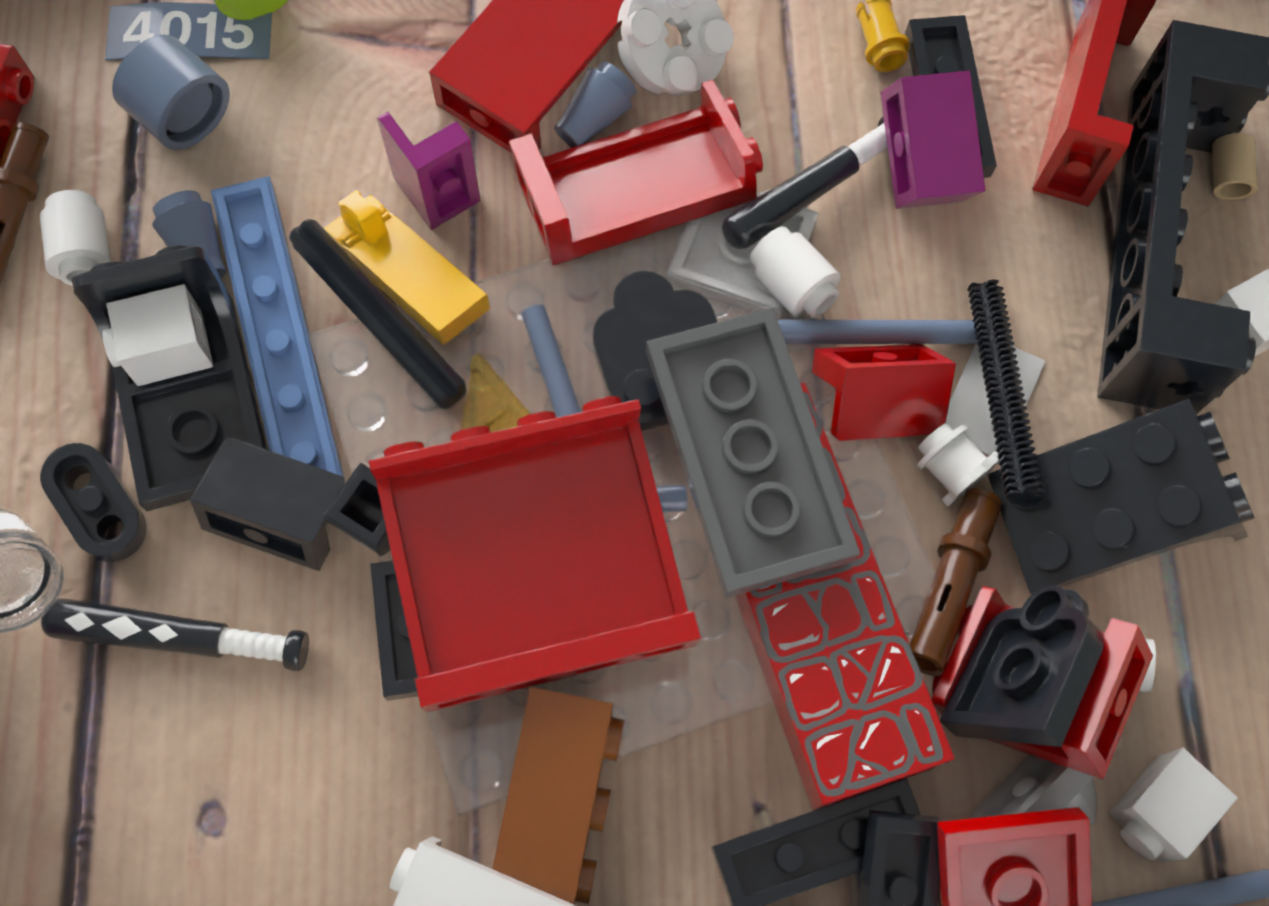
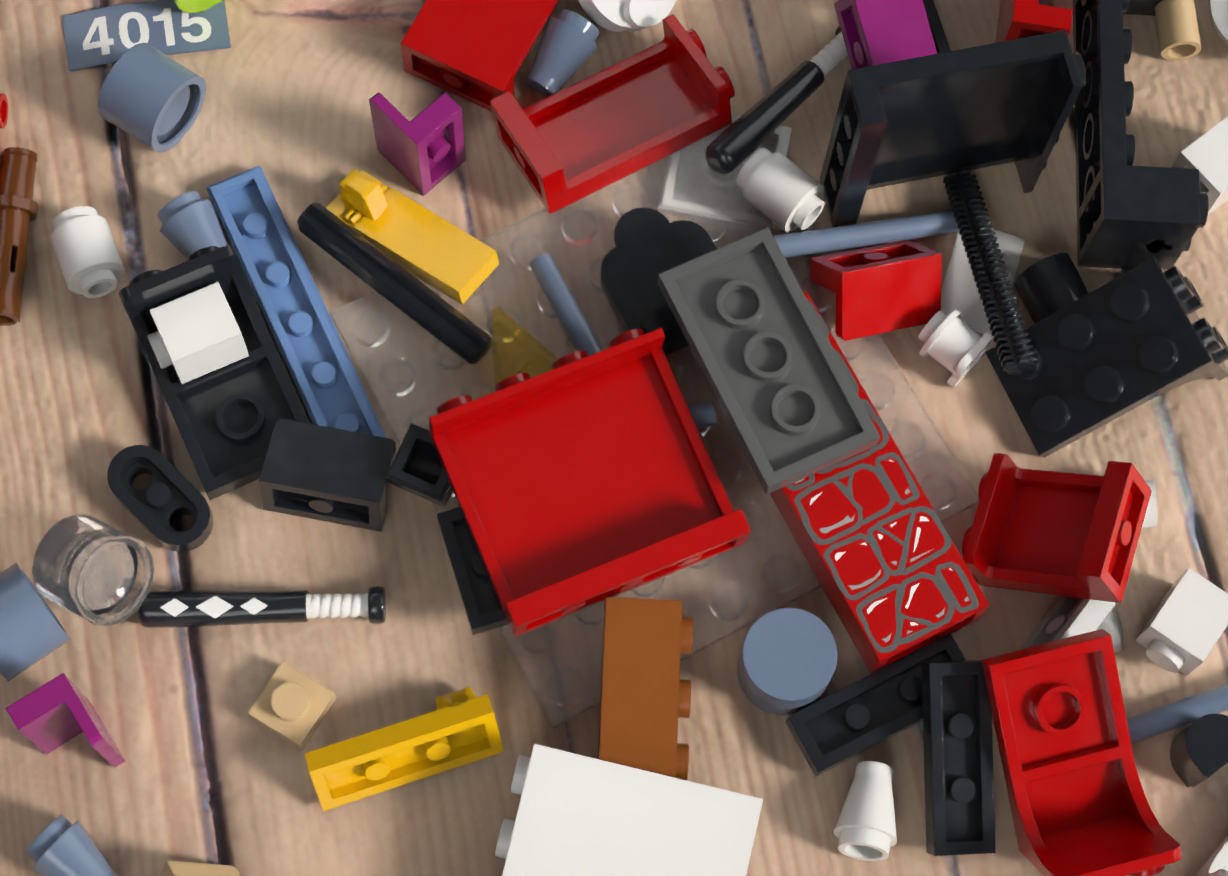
camera: 10 degrees left, 0 degrees up
(185, 746) = (292, 705): none -> tan plate
(292, 819) = (404, 752): none -> yellow hinge
(722, 782) = (786, 661): none -> sand blue piece
(962, 556) = (972, 431): reddish brown pin -> none
(990, 214) = (950, 116): none -> black panel
(1027, 672) = (1041, 519): black plate -> none
(1066, 414) = (1050, 286): none -> black brick

